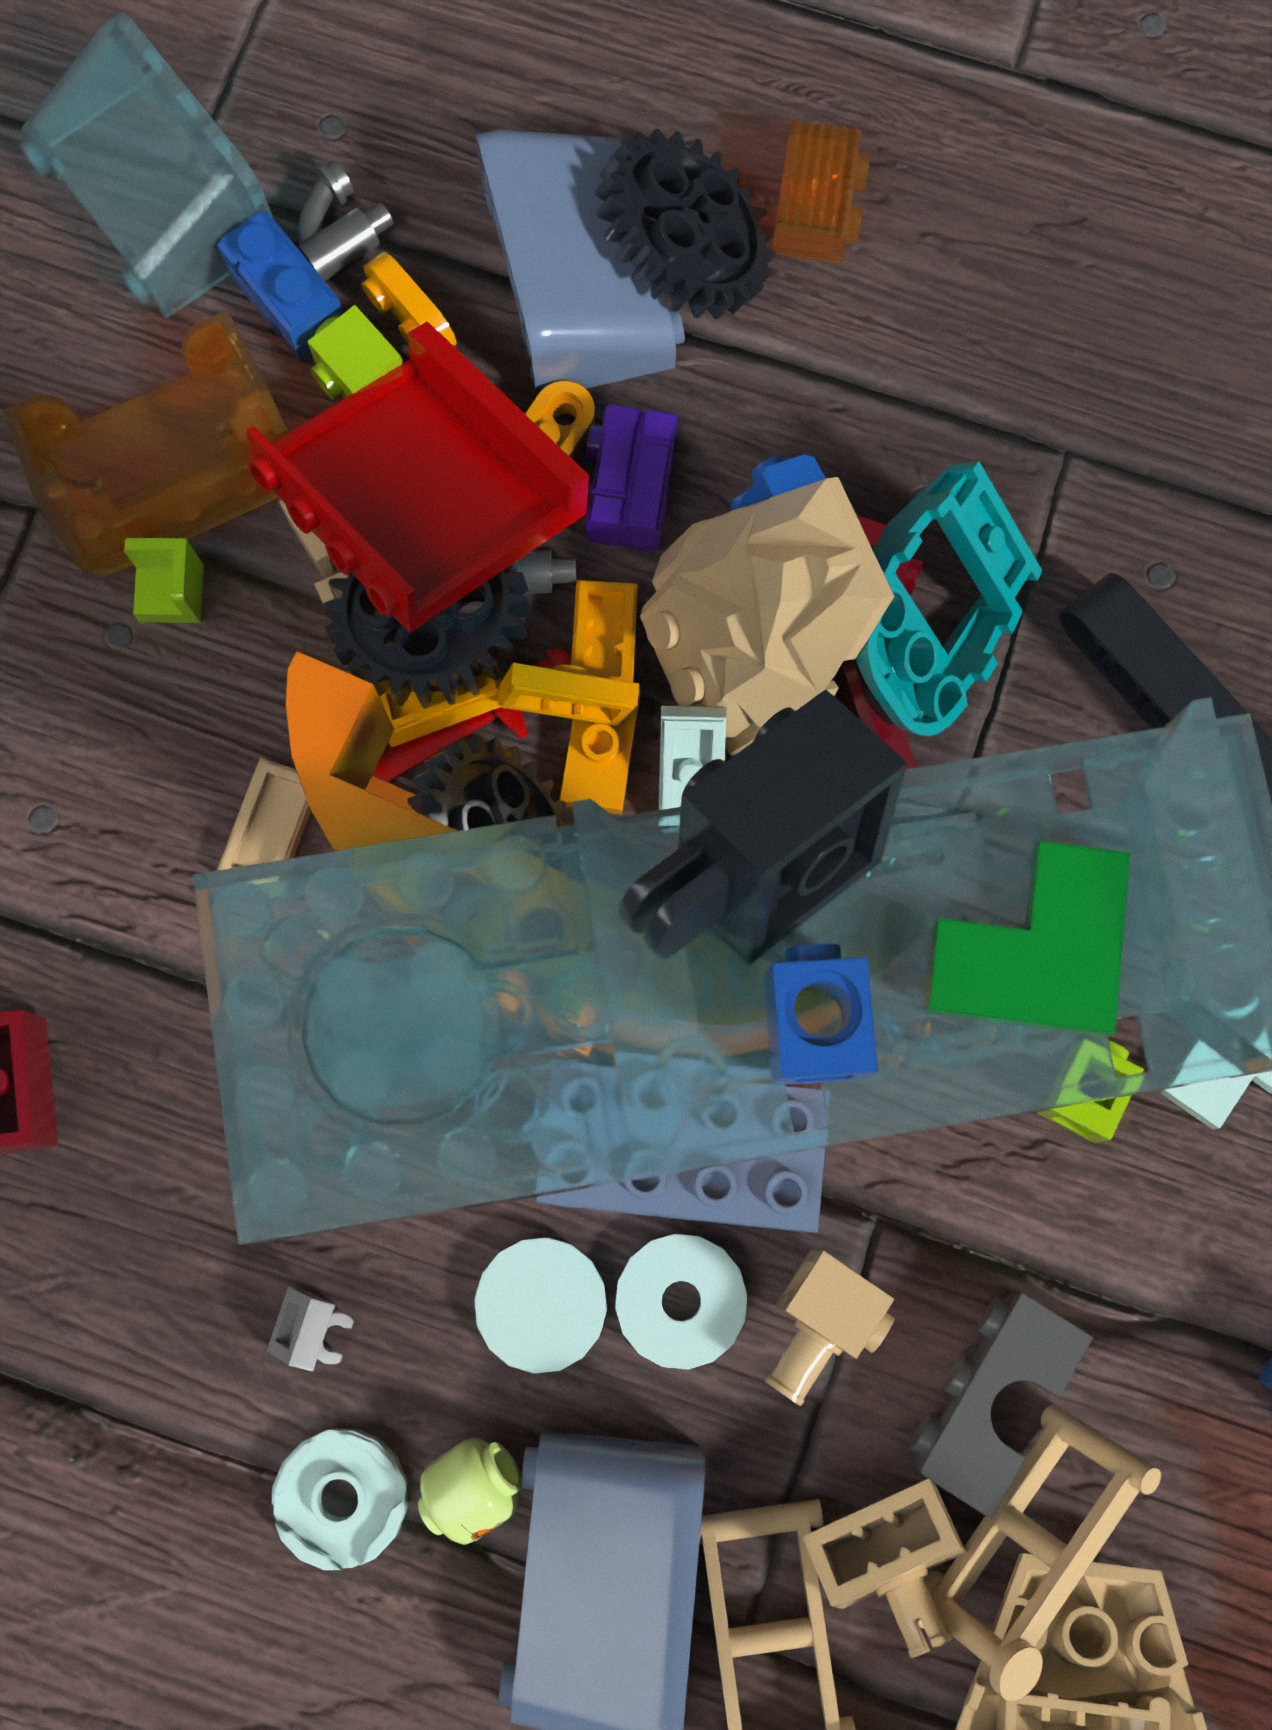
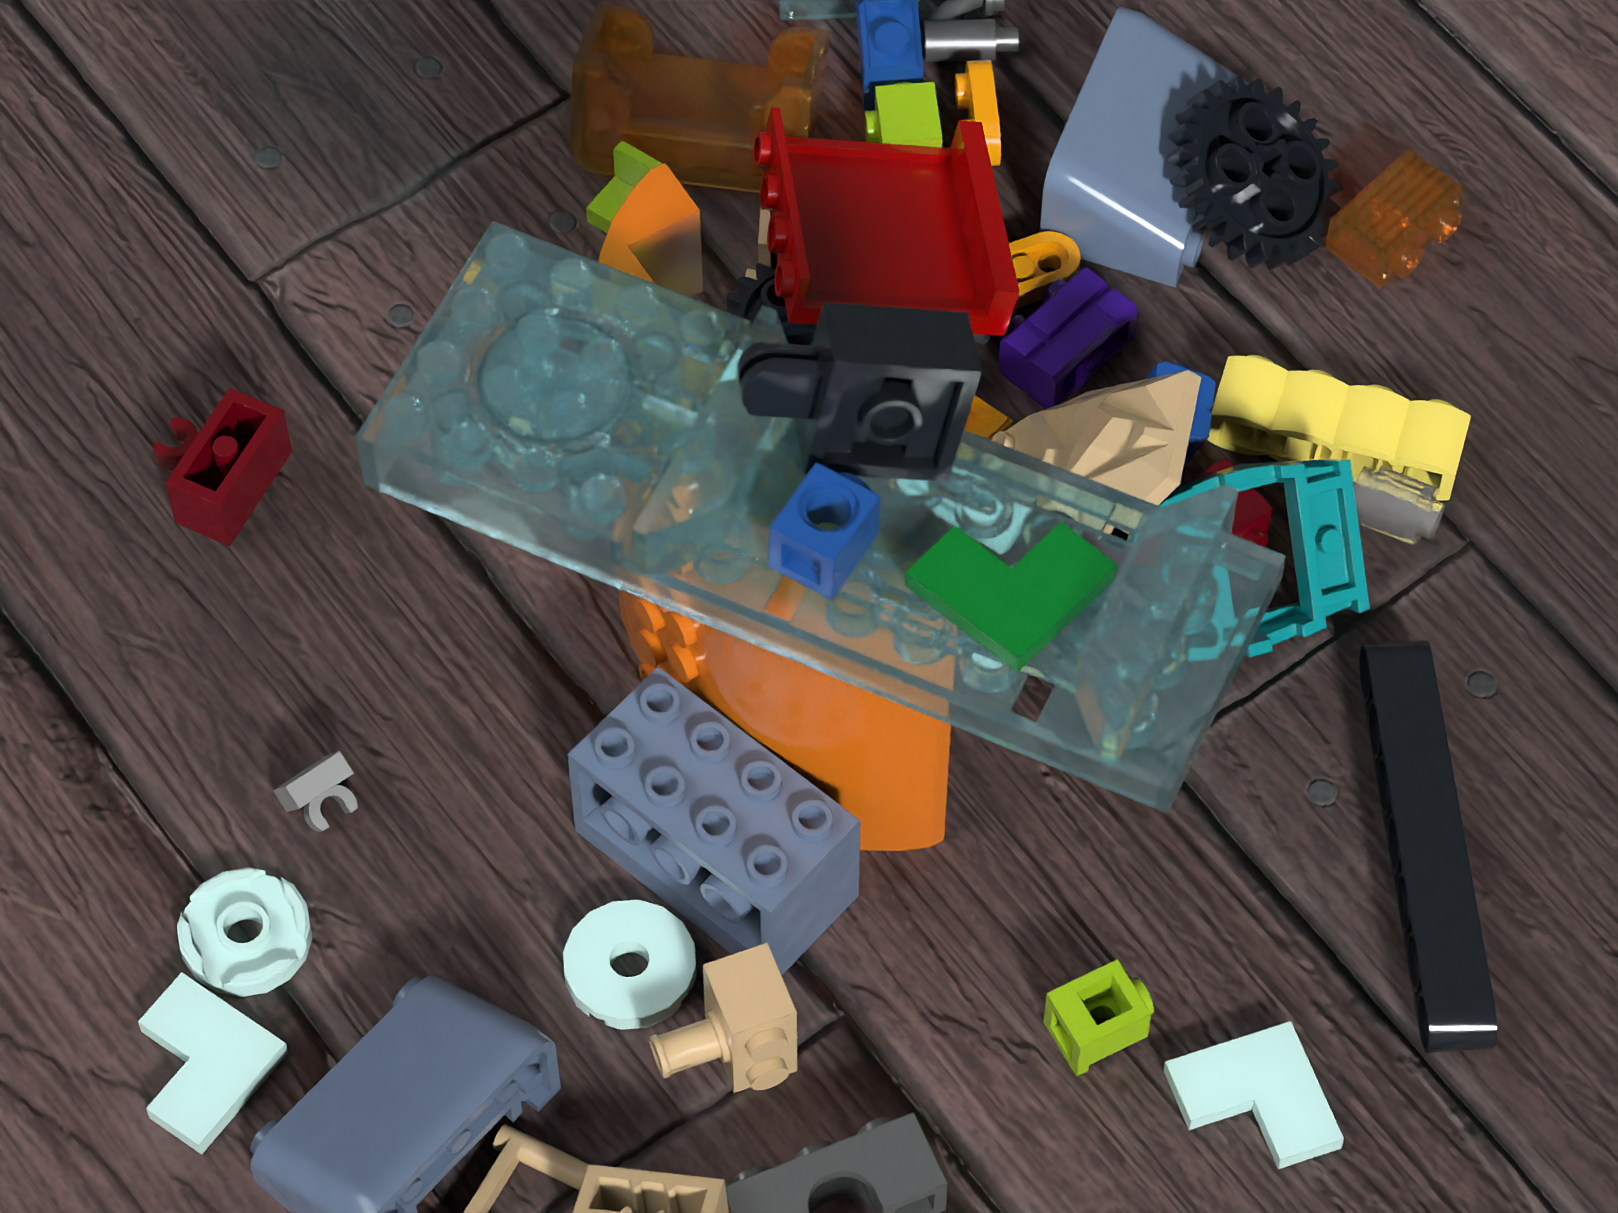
camera: 35 degrees right, 20 degrees down
(407, 1624) = (223, 1057): none -> light aqua tile
(469, 1490) = (350, 980): yellowish green head -> none
(540, 1305) = (514, 894): light aqua tile -> none
(913, 416) = (1320, 417): none -> light yellow brick
(1008, 456) = (1397, 505): none -> clear brick

